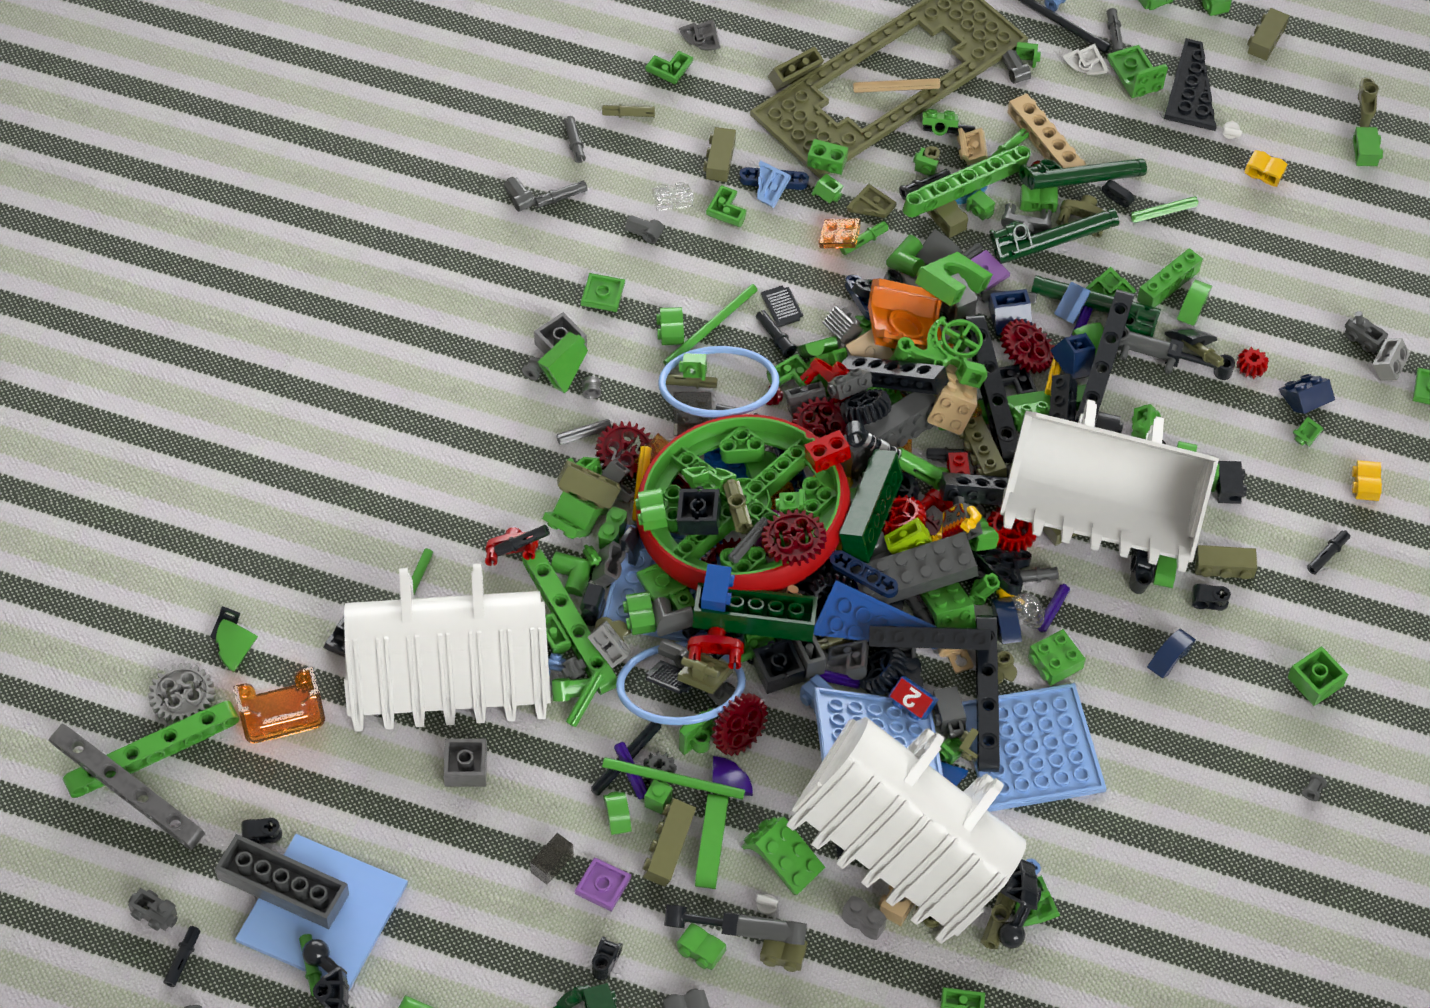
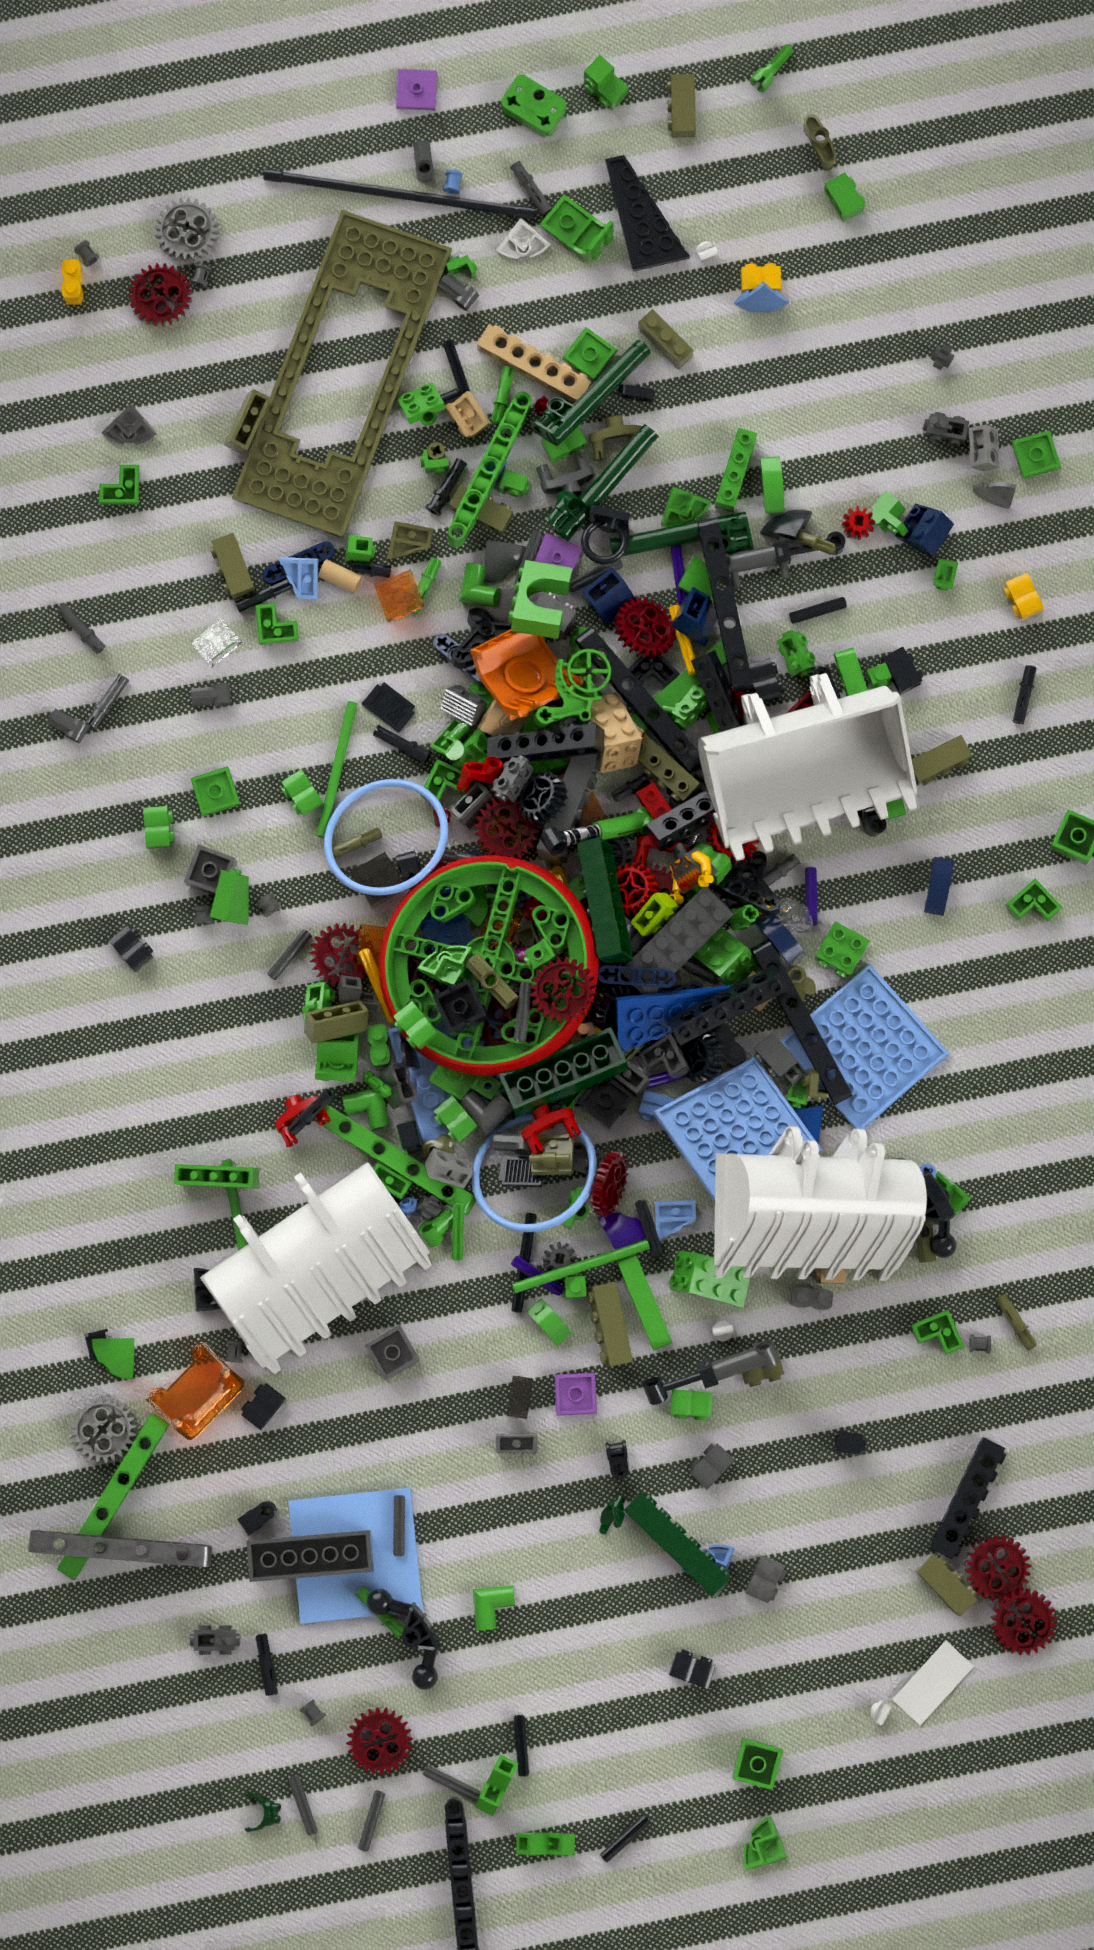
camera: 25 degrees left, 25 degrees up
(327, 747) = (263, 1406): none -> black brick
(330, 699) = (234, 1351): none -> dark grey bush
(376, 903) = (399, 1525): none -> dark grey axle
(412, 550) = (216, 1176): none -> bright green brick
(459, 363) = (131, 948): none -> black brick
(524, 892) = (516, 1443): none -> flat silver brick
(540, 292) = (157, 827): none -> bright green brick
(633, 111) = (113, 563): olive axle -> none
(694, 366) = (355, 835): bright green brick -> none
(716, 587) = (523, 1079): blue brick -> none
(741, 185) = (263, 595): none -> black axle
(753, 785) = (649, 1228): none -> black axle
(779, 788) = (673, 1215): none -> light blue wing
(801, 200) = (340, 576): none -> tan pin
(827, 156) = (339, 510): bright green brick -> none
(827, 451) = (536, 877): red brick -> none
(829, 207) = (372, 569): none -> black axle
(896, 85) = (355, 384): tan axle -> none
(913, 698) = (744, 1071): brick -> none
(971, 373) = (617, 705): bright green brick -> none
(983, 111) = (456, 366): none -> black axle
(1041, 259) = (610, 522): none -> black tile
(1072, 302) = (661, 553): medium blue panel -> none
(1096, 150) = (589, 354): none -> bright green plate
(1164, 169) = (665, 339): none -> olive brick
(1164, 209) = (688, 385): axle -> none
(1182, 407) = (817, 610): none -> black axle
(1209, 597) = (940, 807): black piece -> none
(1252, 703) = (1033, 896): none -> bright green brick
(1259, 178) = (761, 299): none -> medium blue brick
(1282, 366) = (886, 514): none -> bright green brick
(1346, 44) = (765, 75): none -> bright green piece
(1385, 395) = (996, 493): none -> flat silver brick
(1389, 284) = (942, 357): none -> dark grey gear

